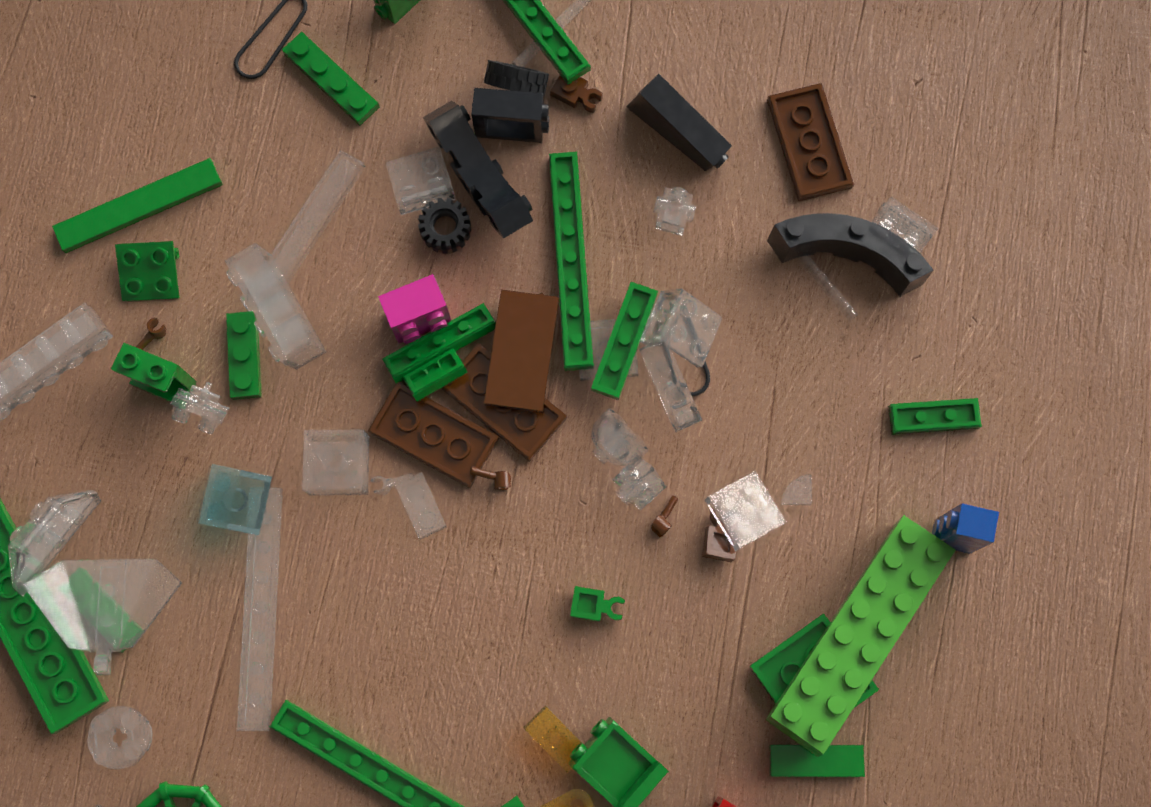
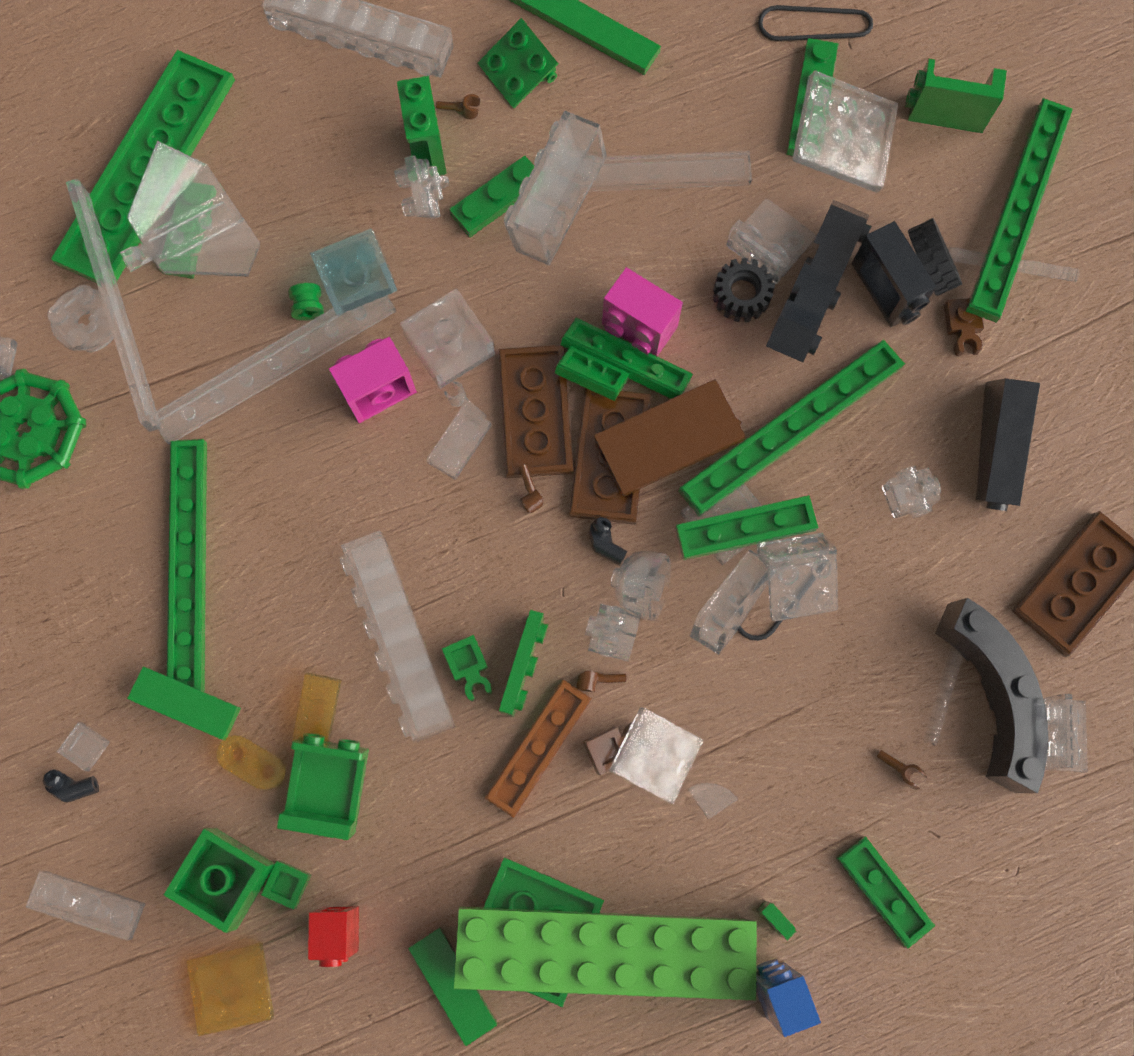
camera: 55 degrees right, 0 degrees up
(46, 534) = (222, 136): clear wedge -> none
(128, 703) = (114, 306): none -> clear tile
(229, 552) = (305, 301): none -> green wheel
(330, 537) = (373, 379): none -> dark pink brick
(376, 73) = (845, 132): none -> clear plate
(538, 643) = (397, 636): none -> clear brick
(565, 449) = (602, 541): none -> black arm
(619, 563) = (524, 664): none -> green plate
(686, 592) = (538, 748): none -> dark orange tile
(862, 347) = (905, 770): none -> reddish brown hand
(909, 501) = (776, 920): none -> green tile

